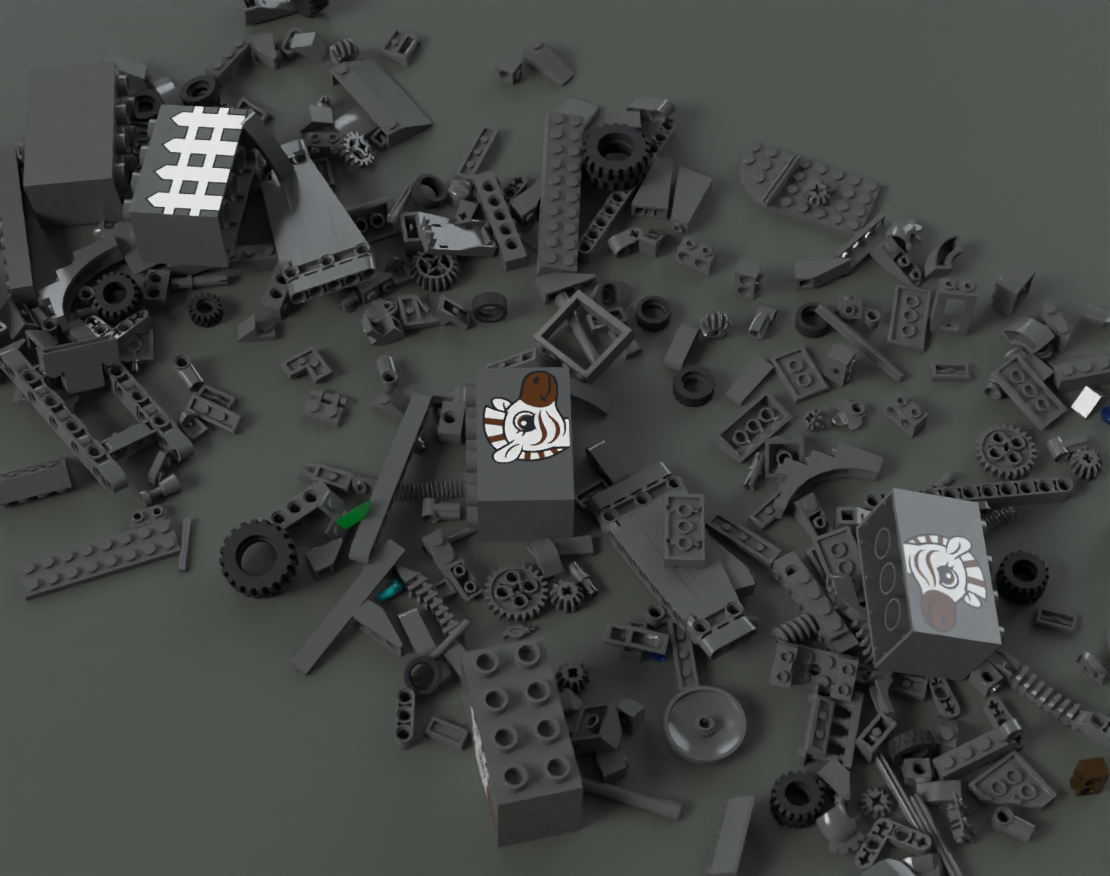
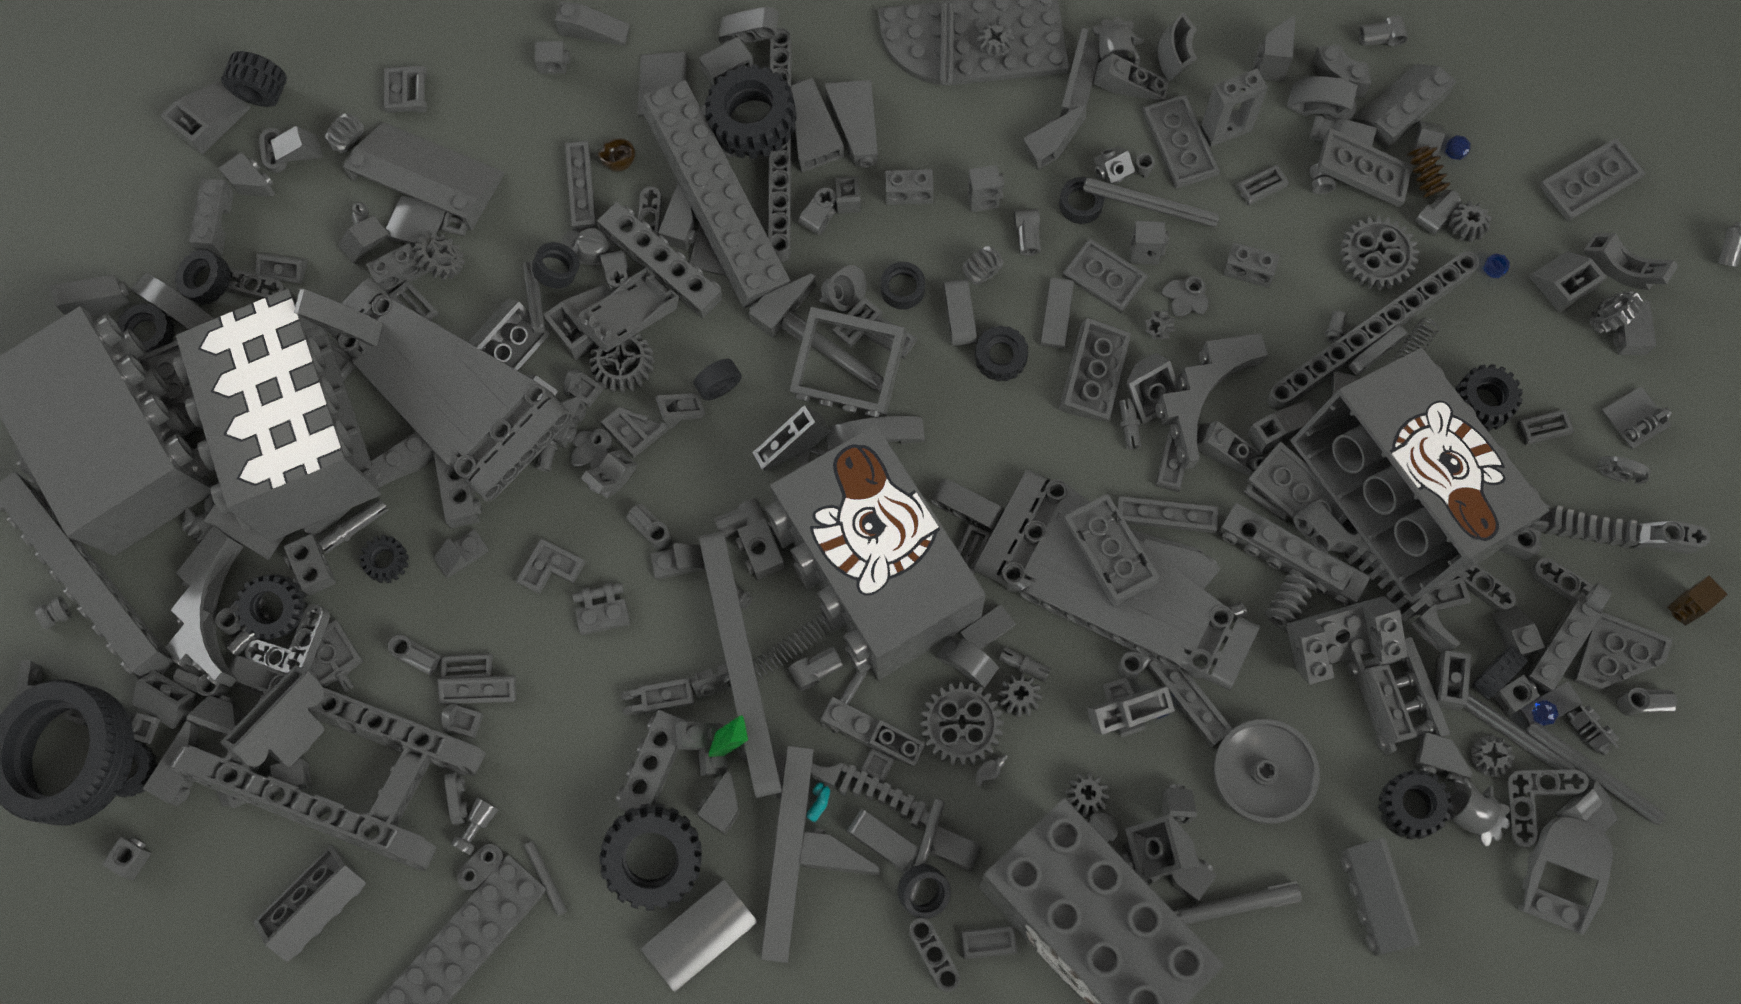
camera: 25 degrees left, 15 degrees up
(259, 627) = (699, 935): none -> dark grey slope
(513, 146) = (617, 154): none -> dark brown hair
(929, 790) = (1545, 712): none -> clear blue tile
(1074, 415) = (1429, 170): none -> dark brown piece
(1088, 501) = (1496, 265): none -> clear blue tile

